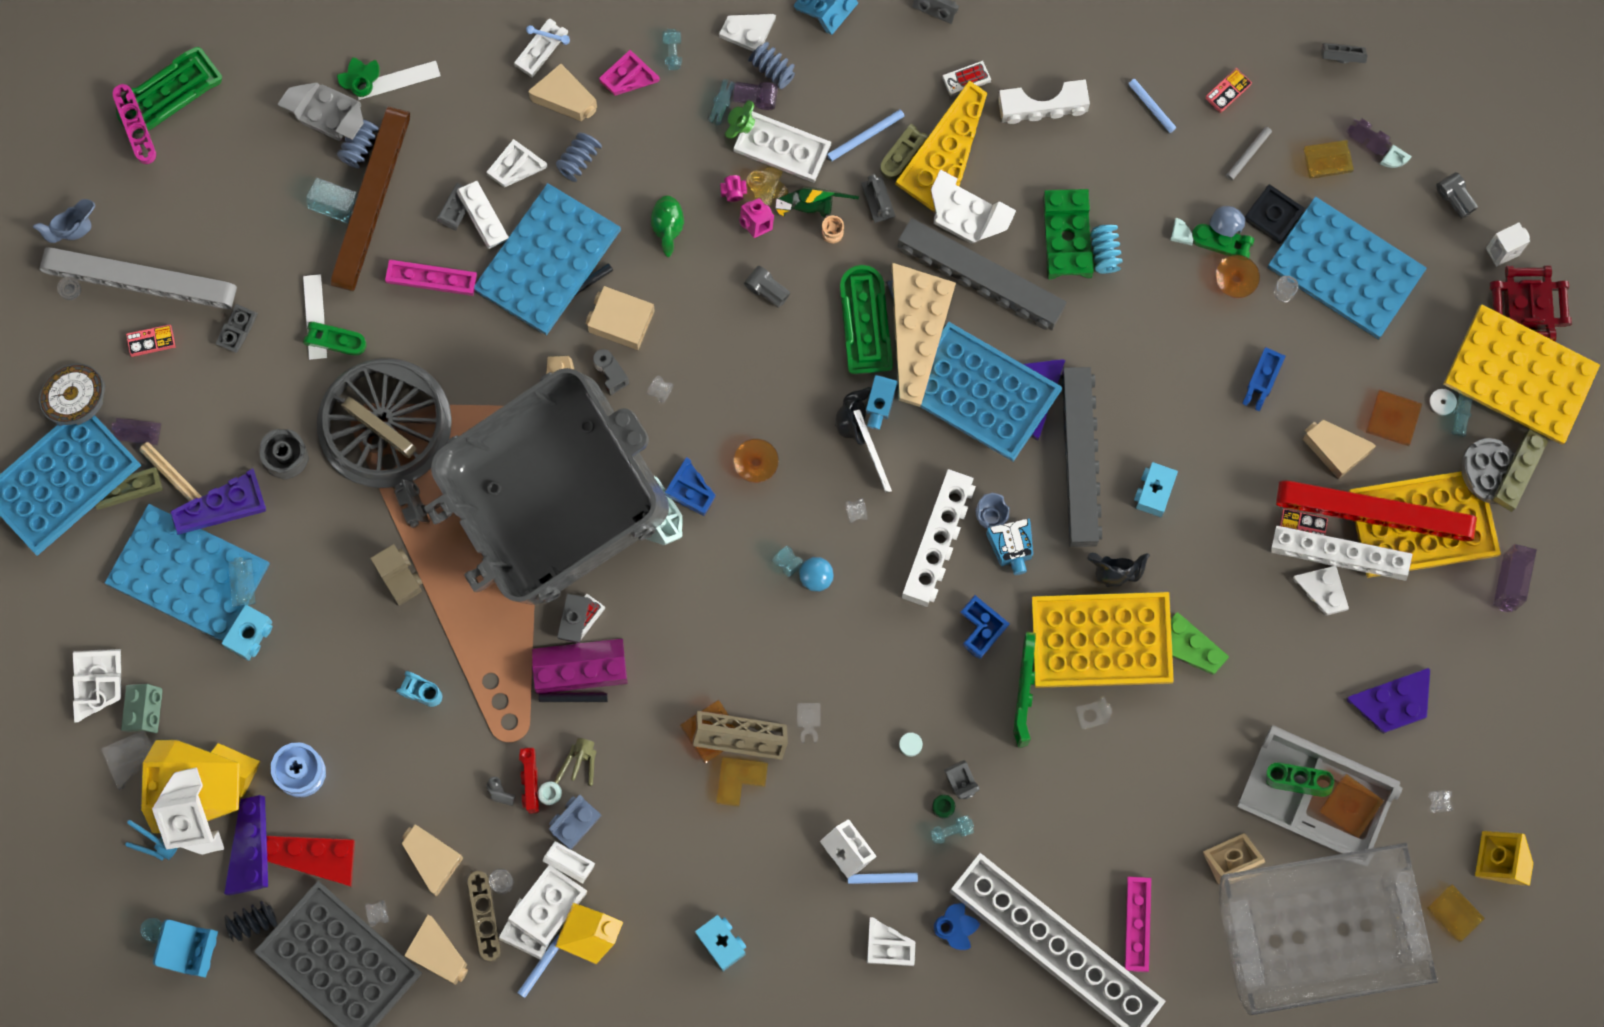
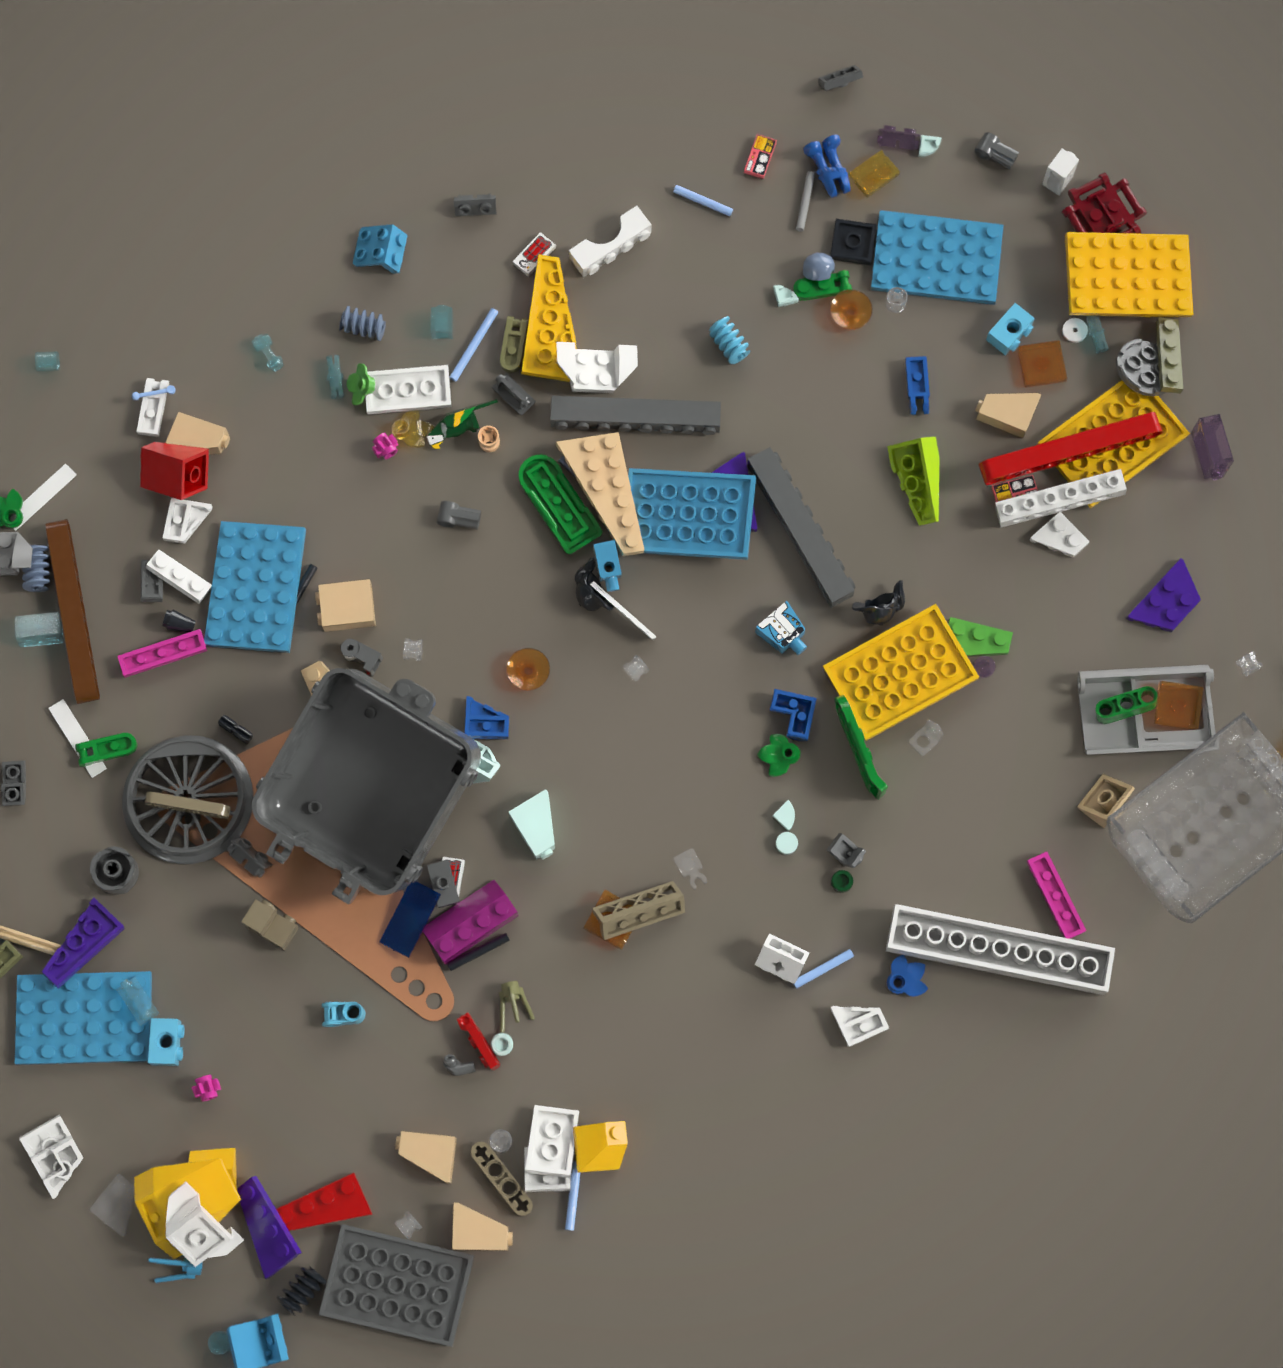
camera: 25 degrees left, 0 degrees up
(141, 708) = (106, 1156): sand green bracket -> none
(262, 693) = (206, 1088): none -> dark pink gear
(290, 758) = (260, 1135): light blue wheel -> none
(459, 377) = (232, 727): none -> black piece
(460, 256) = (178, 622): none -> black cone
(526, 634) = (410, 918): none -> clear blue piece
(529, 114) = (174, 469): none -> red slope
(568, 862) = (550, 1094): white tile -> none
(574, 821) = (536, 1057): sand blue bracket -> none
(576, 154) = (234, 483): sand blue piece -> none
(628, 74) = (241, 393): dark pink wing -> none
(667, 222) = (343, 503): green hair -> none
(687, 607) = (535, 824): none -> light aqua slope
(709, 936) = (723, 1105): medium azure brick -> none
(734, 774) = (652, 945): clear yellow plate -> none
(747, 30) = (324, 304): white wing -> none
(756, 217) = (418, 461): dark pink brick -> none
(762, 95) = (368, 354): clear purple piece -> none
(787, 560) = (600, 740): clear light blue wheel -> none
(816, 574) = (630, 739): dark azure hair -> none
(846, 100) = (442, 322): none -> clear light blue brick
(923, 718) = (785, 815): none -> light aqua tile
(944, 656) = (776, 755): none -> green plate
(953, 483) = (720, 710): white brick -> none
(964, 827) = (868, 889): clear light blue bar -> none
(992, 510) = (751, 610): sand blue hair -> none
(1067, 212) = (676, 328): green piece -> none
(1164, 480) = (881, 511): medium azure brick -> none
(1184, 675) = (984, 666): none -> clear purple plate
(1220, 460) = (918, 471): none -> lime wedge
(1282, 137) = (829, 174): none -> blue piece
(1389, 361) = (1013, 318): none -> medium azure brick

